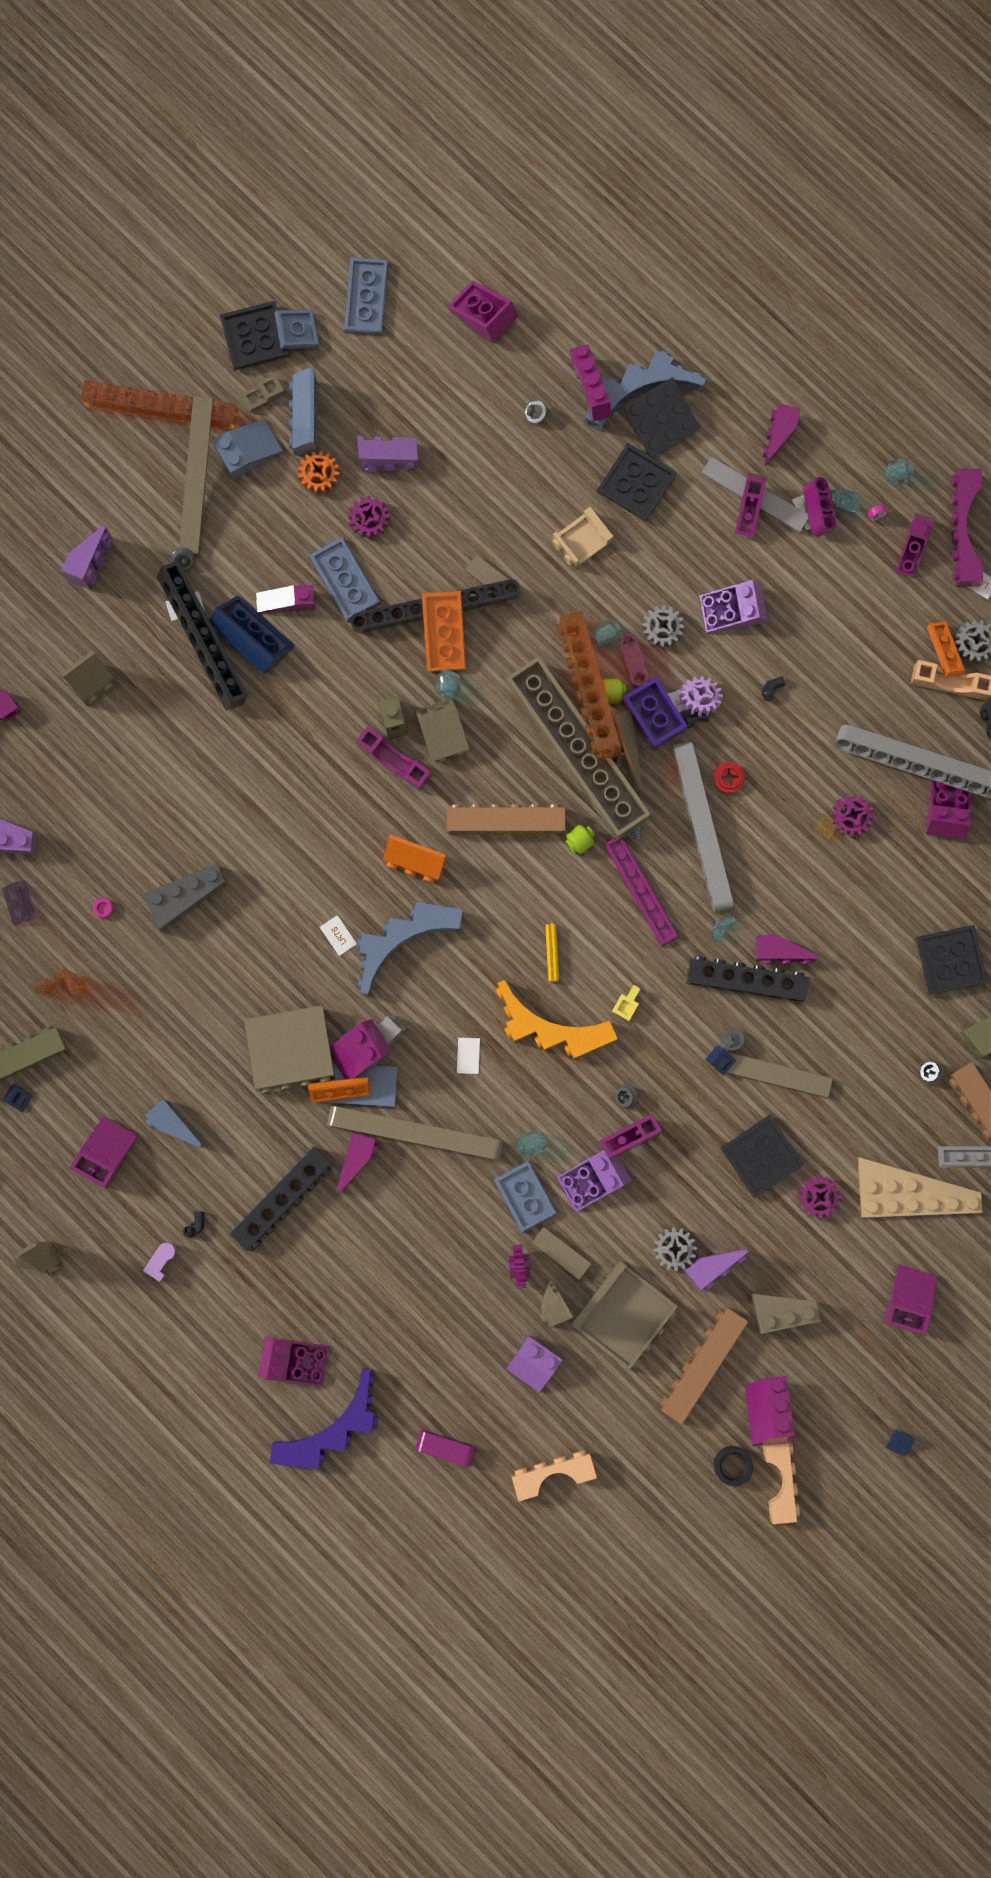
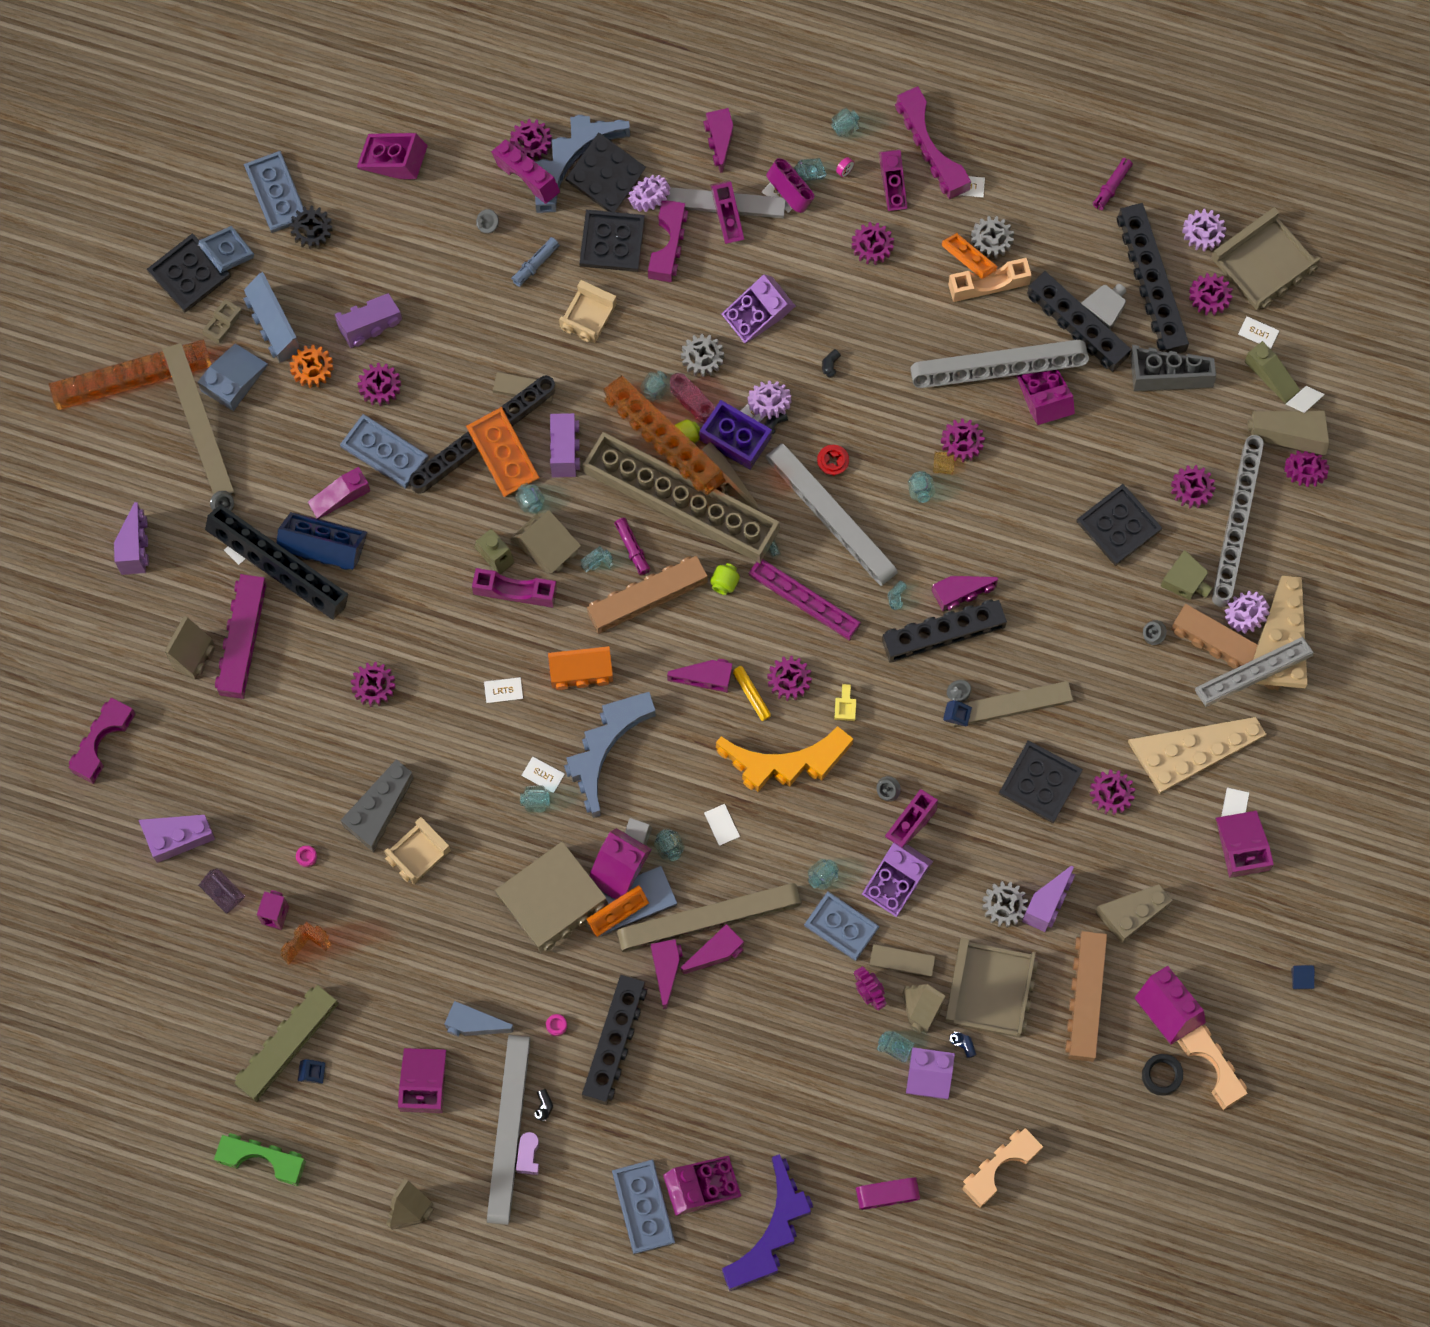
camera: 30 degrees left, 10 degrees down
(50, 943) = (273, 909): none -> magenta brick
(141, 687) = (241, 636): none -> magenta brick
(155, 1231) = (508, 1130): none -> light grey beam
(197, 951) = (417, 851): none -> tan panel
(235, 1353) = (643, 1207): none -> sand blue tile
(239, 784) = (367, 689): none -> magenta gear
(240, 1160) = (556, 1025): none -> dark pink tile
(320, 955) = (535, 798): none -> clear light blue head
(341, 843) = (503, 690): none -> white sticker
(386, 348) = (303, 227): none -> black gear
(411, 1165) = (717, 950): none -> magenta slope
(413, 1052) = (669, 845): none -> clear light blue head
(473, 767) = (594, 559): none -> clear light blue bracket
(500, 650) = (564, 445): none -> medium lavender wedge
(515, 770) = (630, 542): none -> magenta pin
(517, 1324) = (895, 1045): none -> clear light blue bracket
(522, 918) = (708, 675): none -> magenta slope
(555, 471) = (529, 268): none -> sand blue pin
(578, 1350) = (963, 1041): none -> dark blue arm
(592, 948) = (782, 681): none -> magenta gear
(612, 345) = (528, 136): none -> magenta gear
(671, 524) = (662, 263): none -> magenta arch
(690, 454) = (649, 193): none -> lavender gear
(794, 840) = (921, 486): none -> clear light blue head
(872, 601) = (880, 248): none -> magenta gear
(922, 1258) = (1235, 802): none -> white sticker

